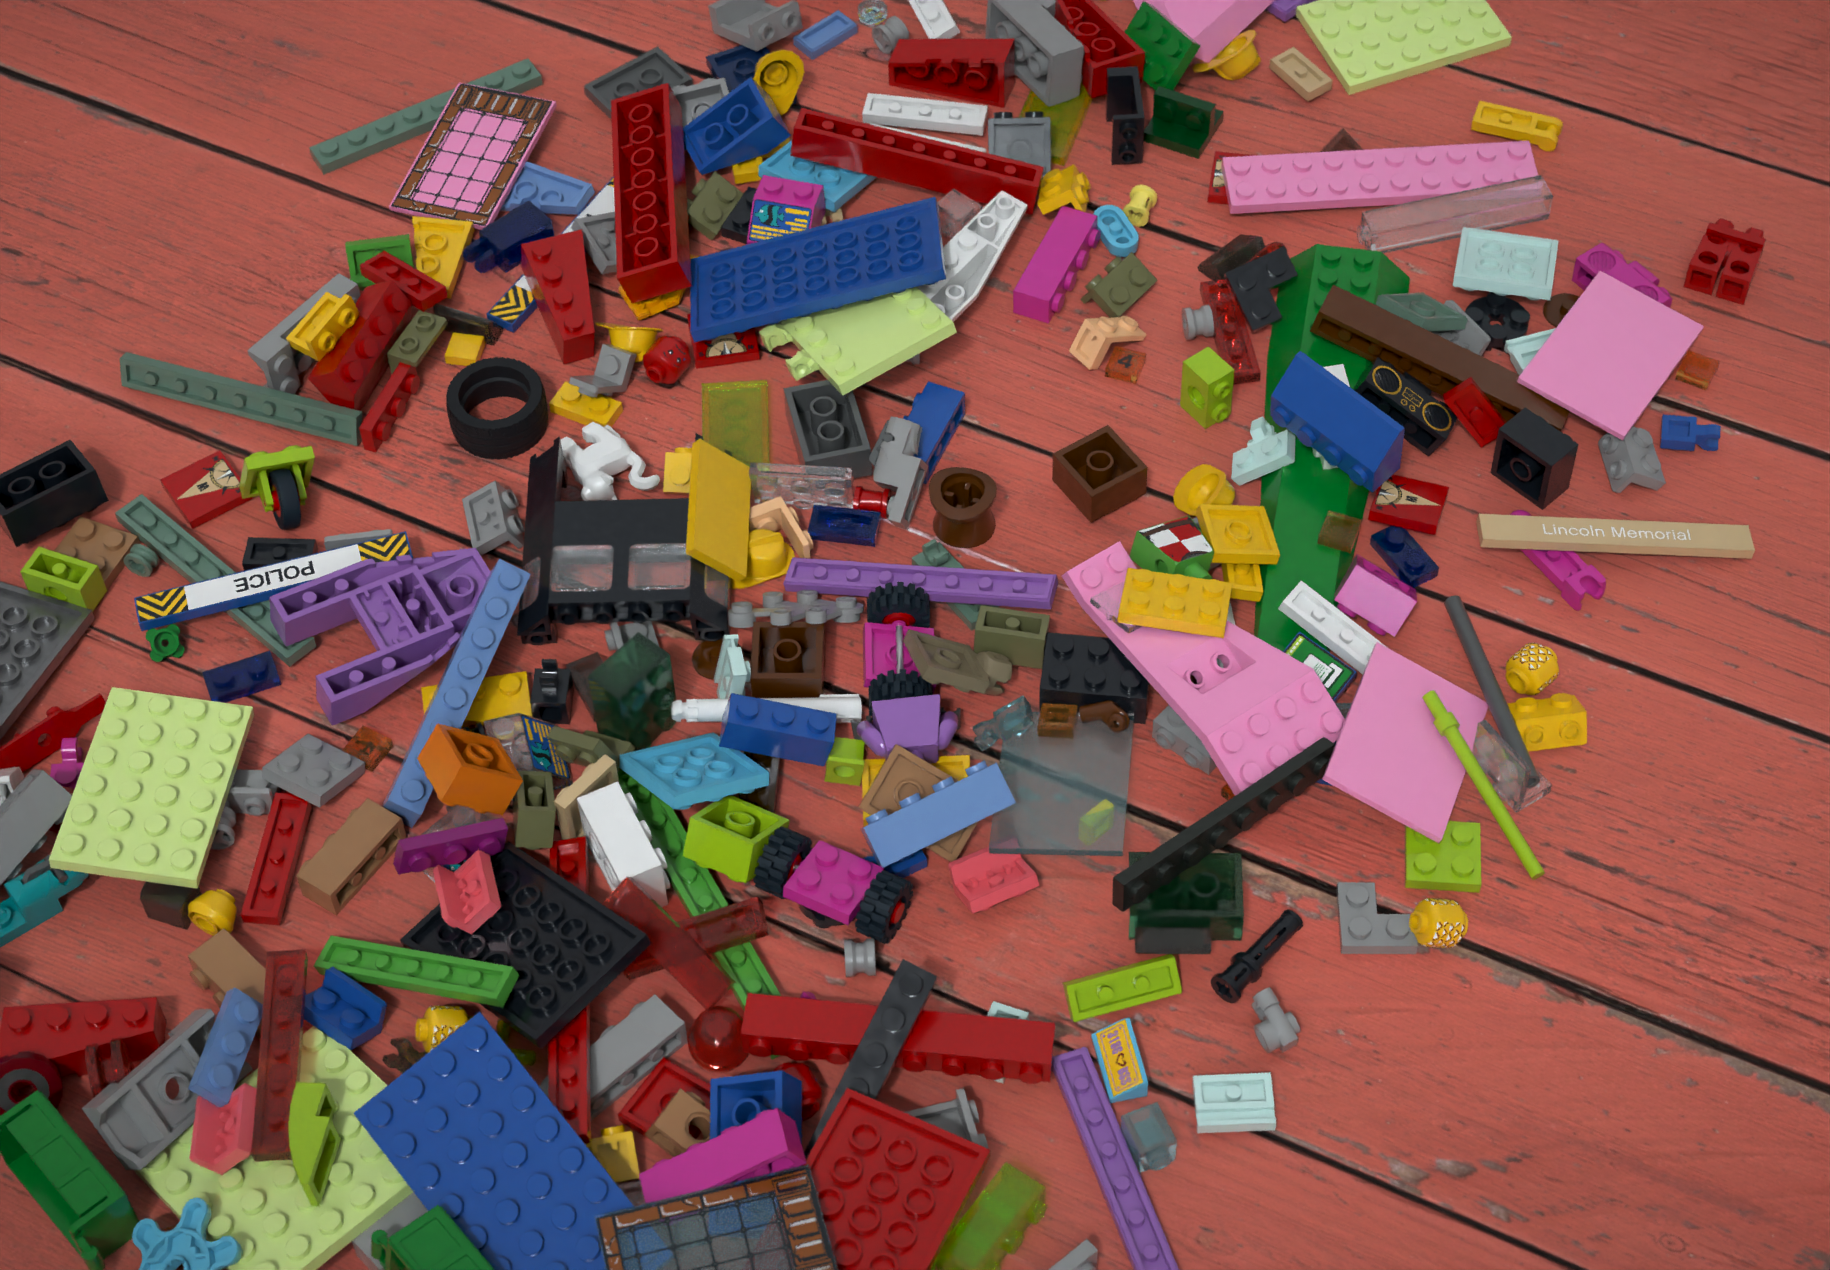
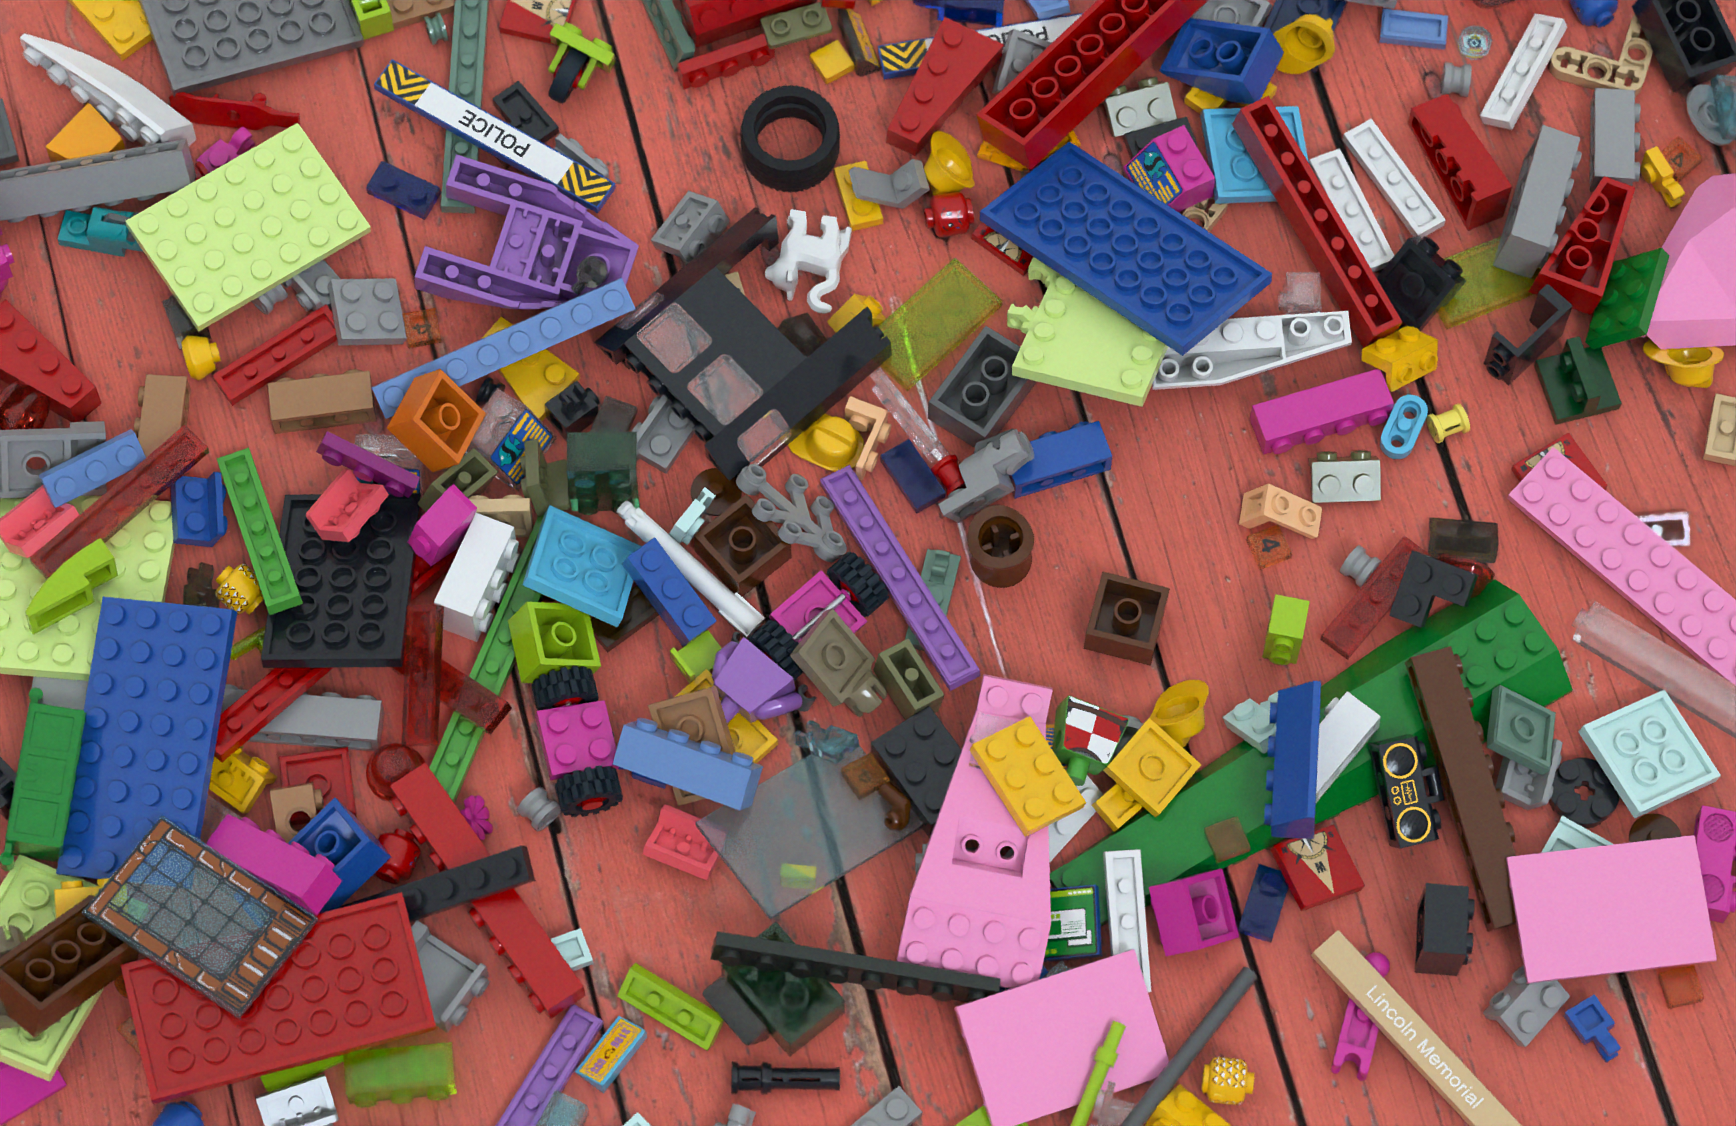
camera: 45 degrees right, 15 degrees up
(156, 637) = (374, 116): green plate -> none
(464, 588) = (590, 274): none -> clear smoke piece
(562, 828) = (442, 526): none -> dark pink slope
(718, 510) = (819, 383): yellow tile -> none
(1475, 411) = (1449, 850): red plate -> none

